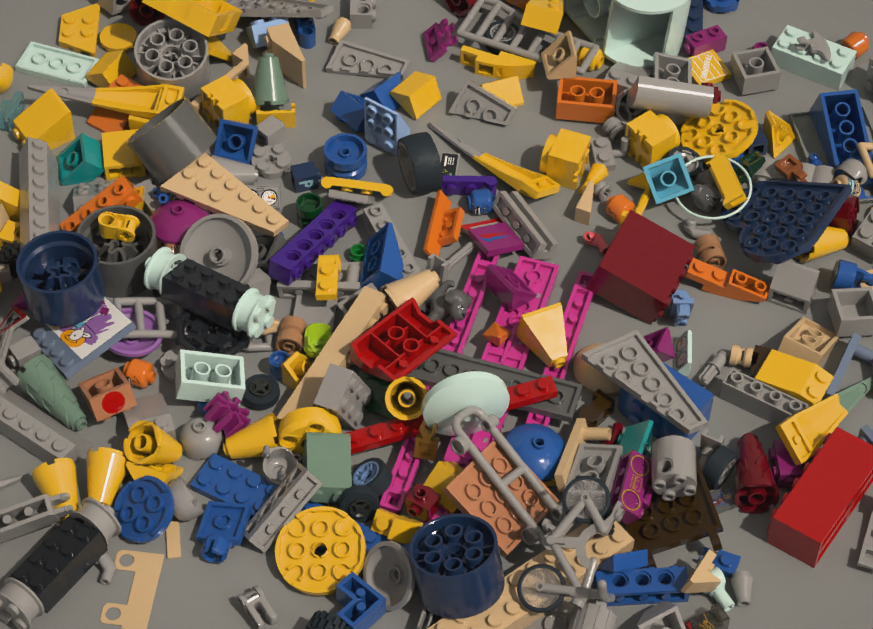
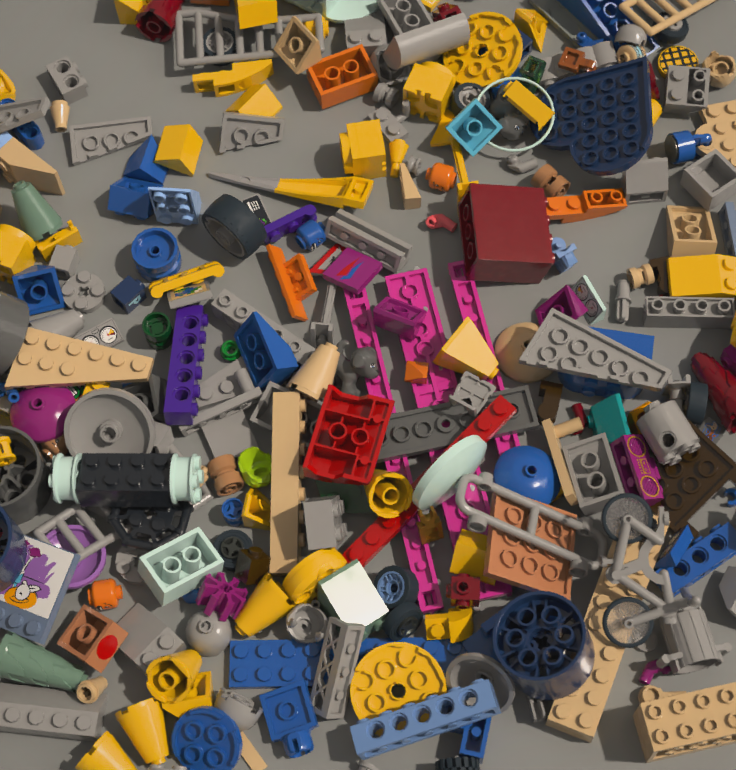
camera: 25 degrees left, 15 degrees up
(81, 429) = (90, 690): none -> tan cone
(266, 403) = (252, 565): none -> dark brown brick
(325, 574) = (437, 723): none -> medium blue brick
(327, 277) = (225, 396): yellow plate -> none
(436, 41) = (160, 82): magenta plate -> none
(532, 363) = (472, 389): none -> light grey piece

